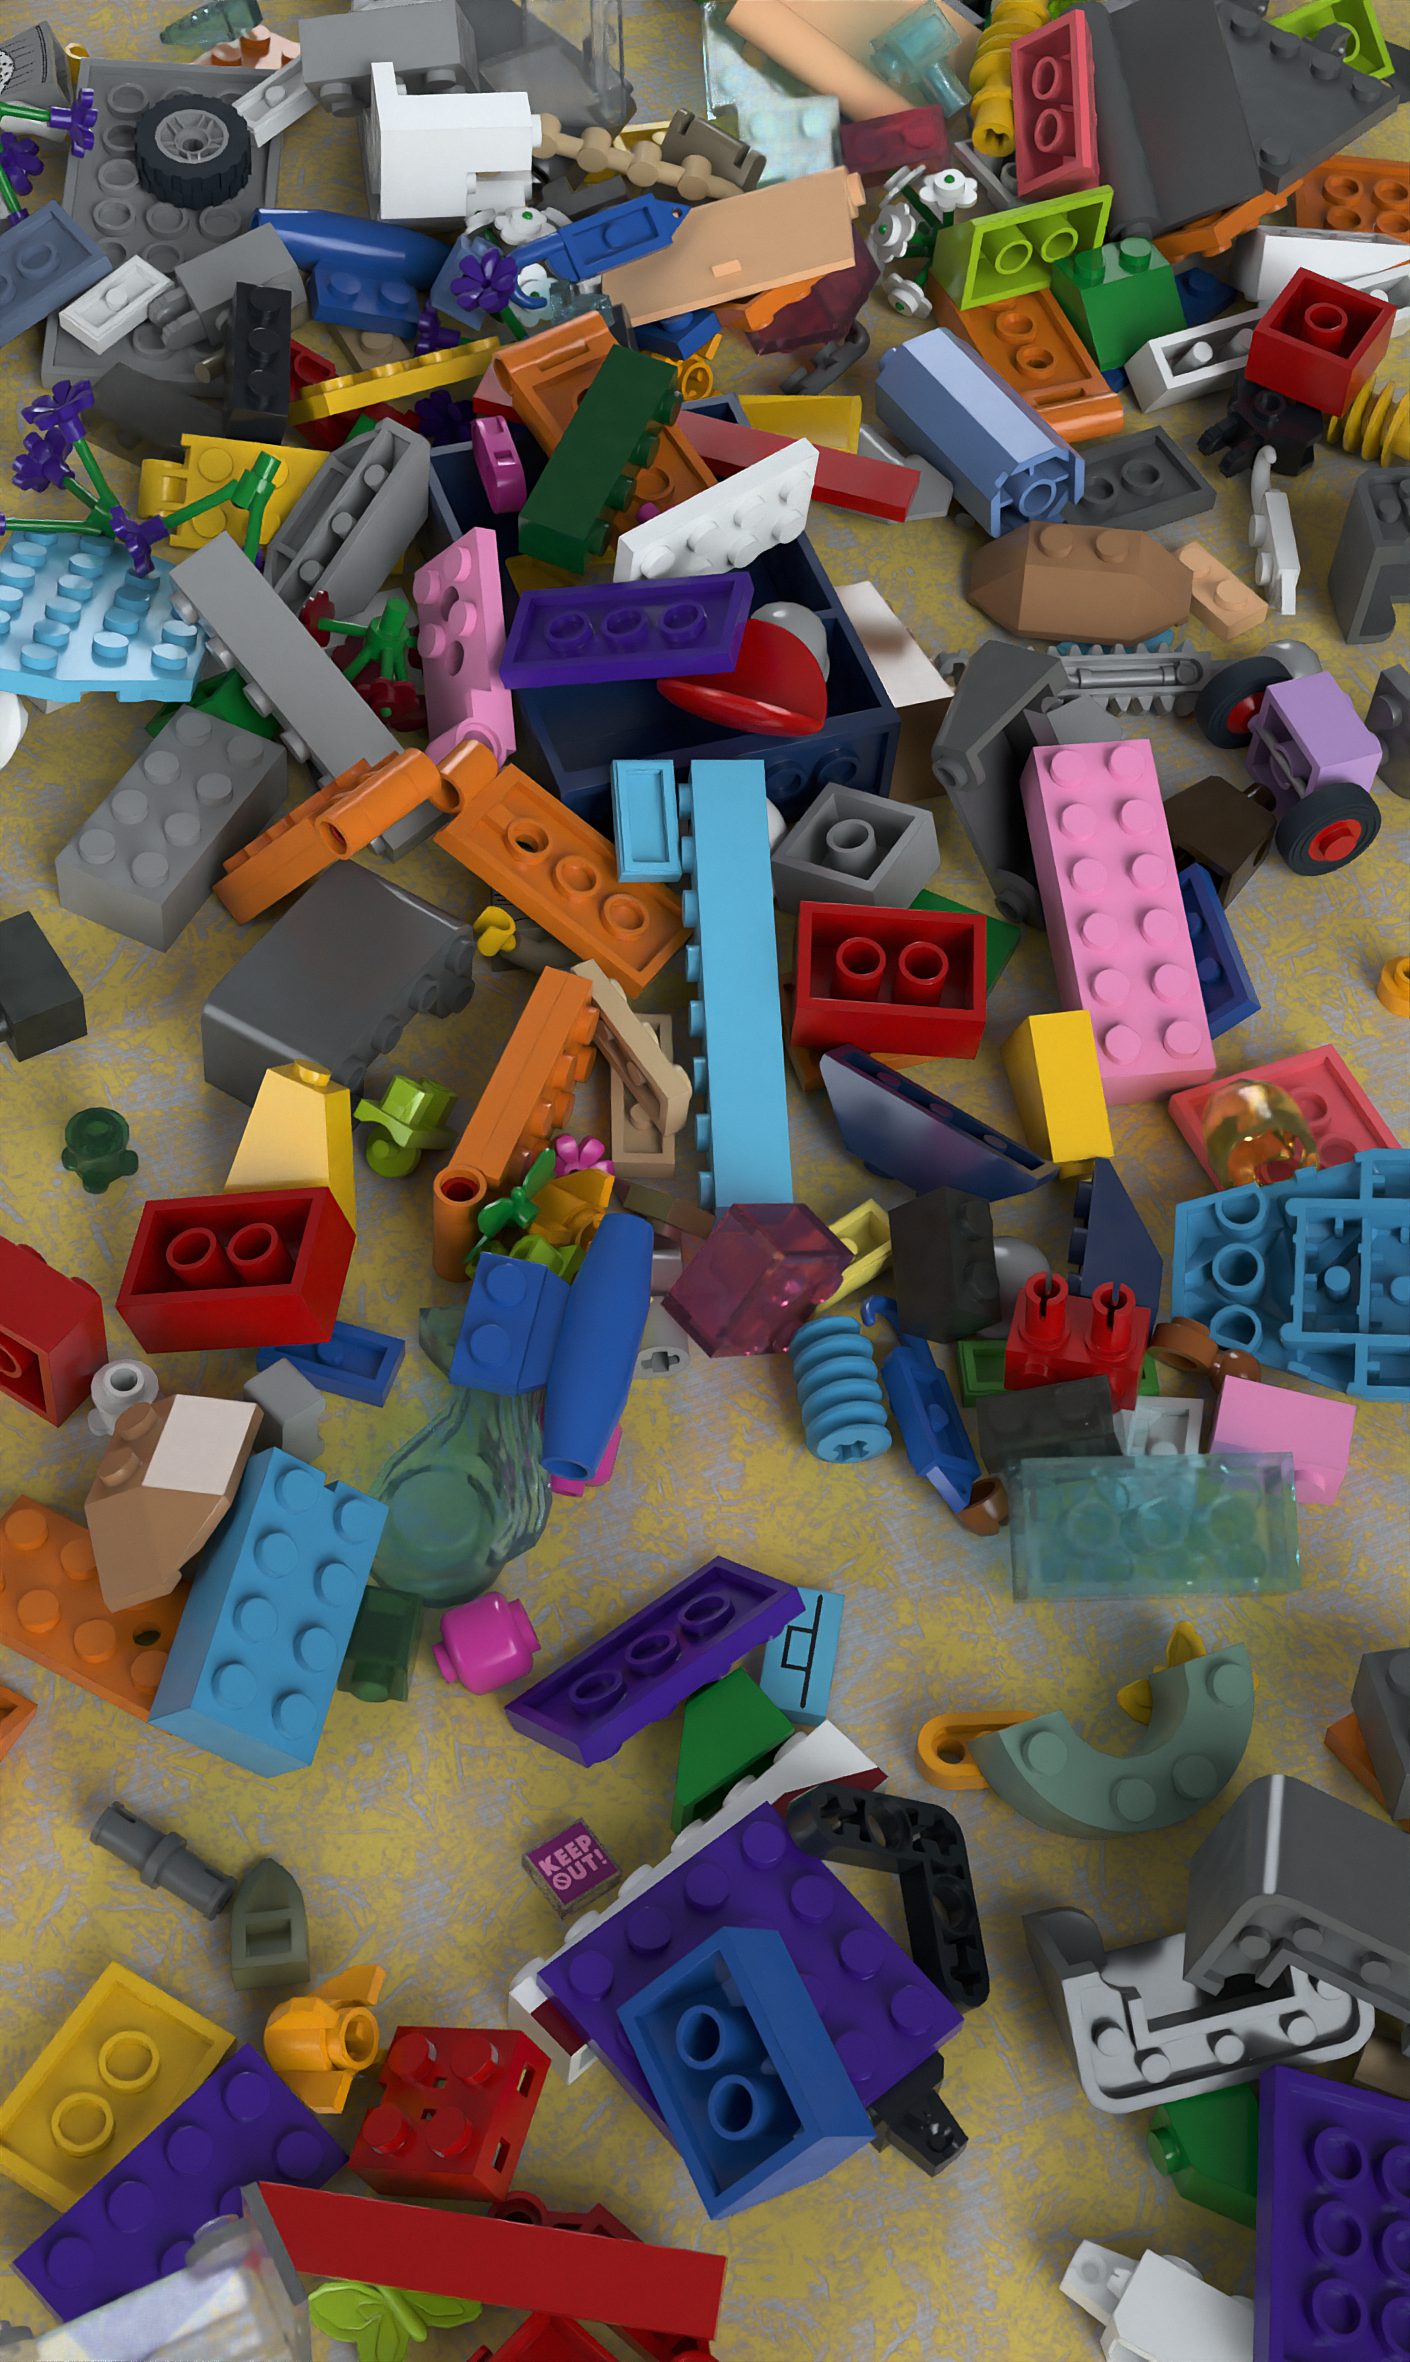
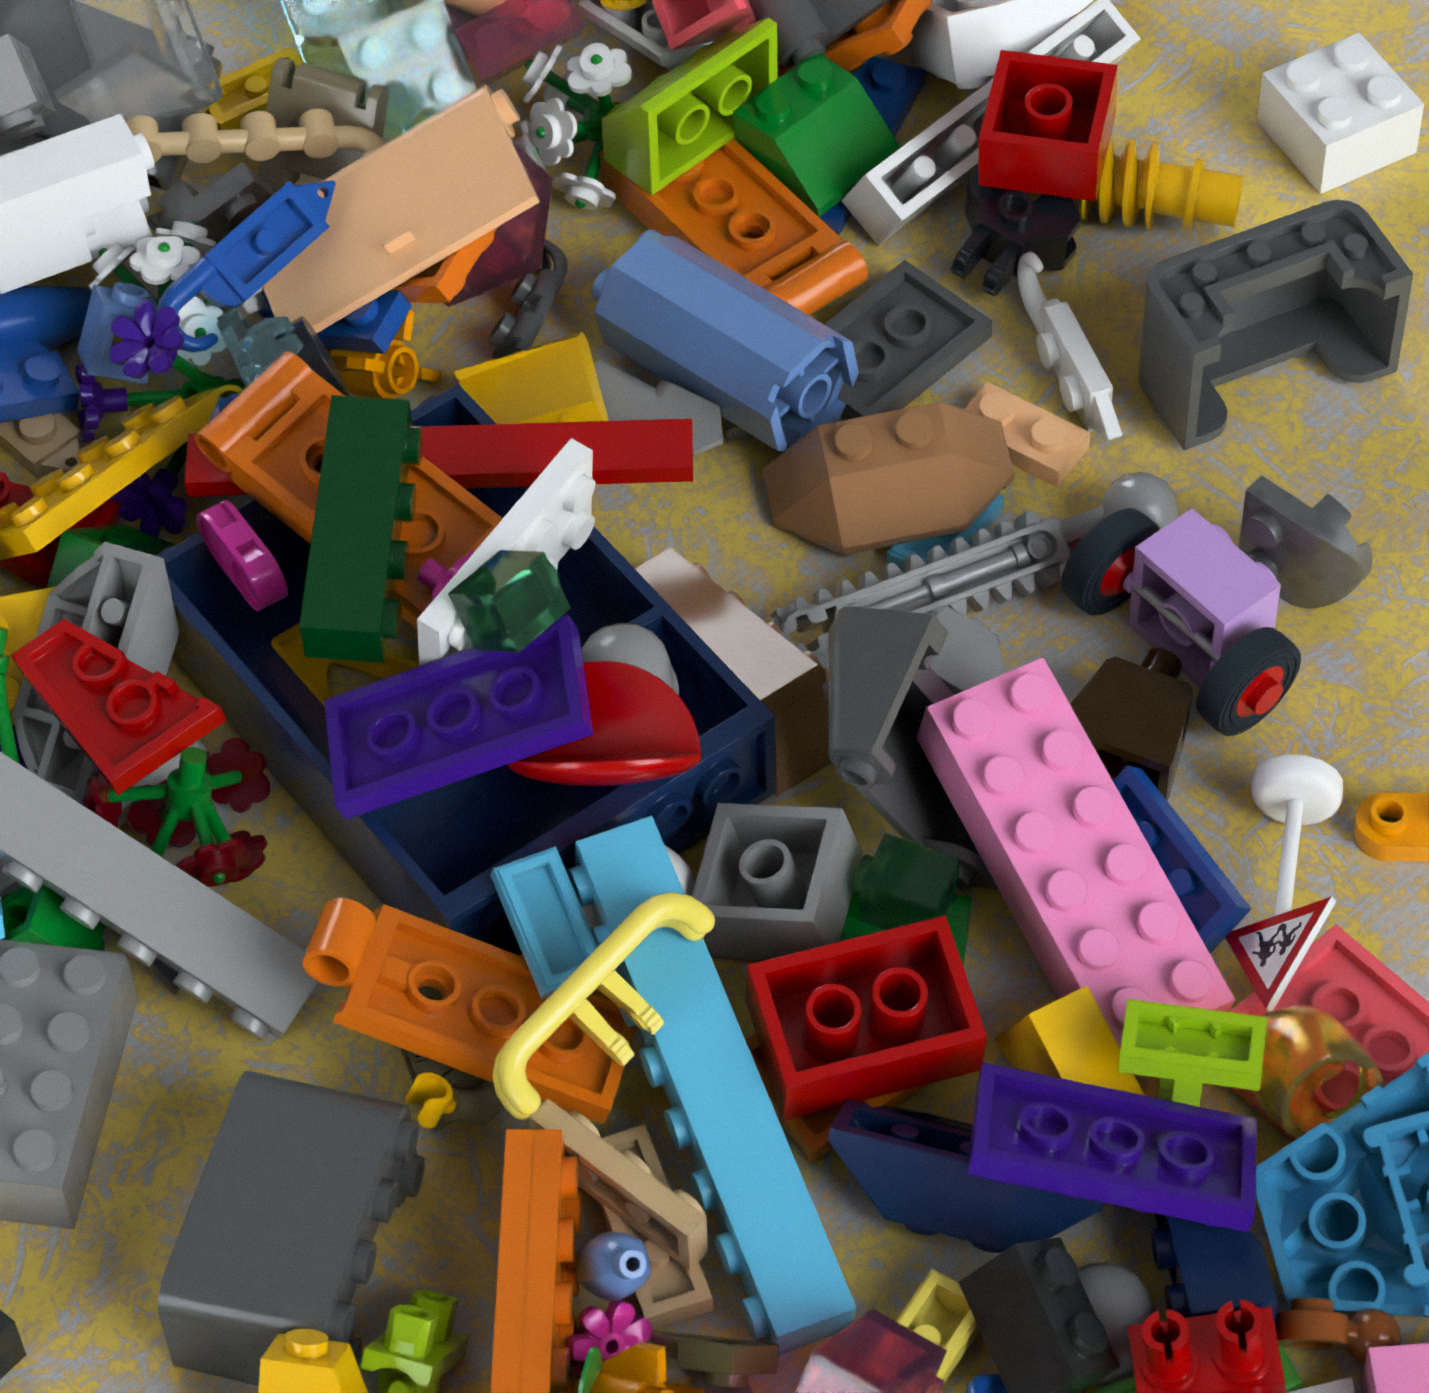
camera: 10 degrees left, 0 degrees up
(325, 828) = (217, 1055): orange hinge -> none
(346, 548) = (111, 706): none -> red wing
(464, 647) = (301, 838): bright pink hinge -> none
(598, 1106) = (613, 1265): none -> medium blue plant
(663, 863) = (596, 972): none -> light yellow piece
(702, 544) = (509, 600): none -> clear green brick
(971, 887) = (905, 883): none -> clear green brick
(1062, 1142) = (1114, 1147): none -> dark purple plate
(1156, 1087) = (1192, 1048): none -> lime bracket
(1337, 932) = (1296, 793): none -> white piece

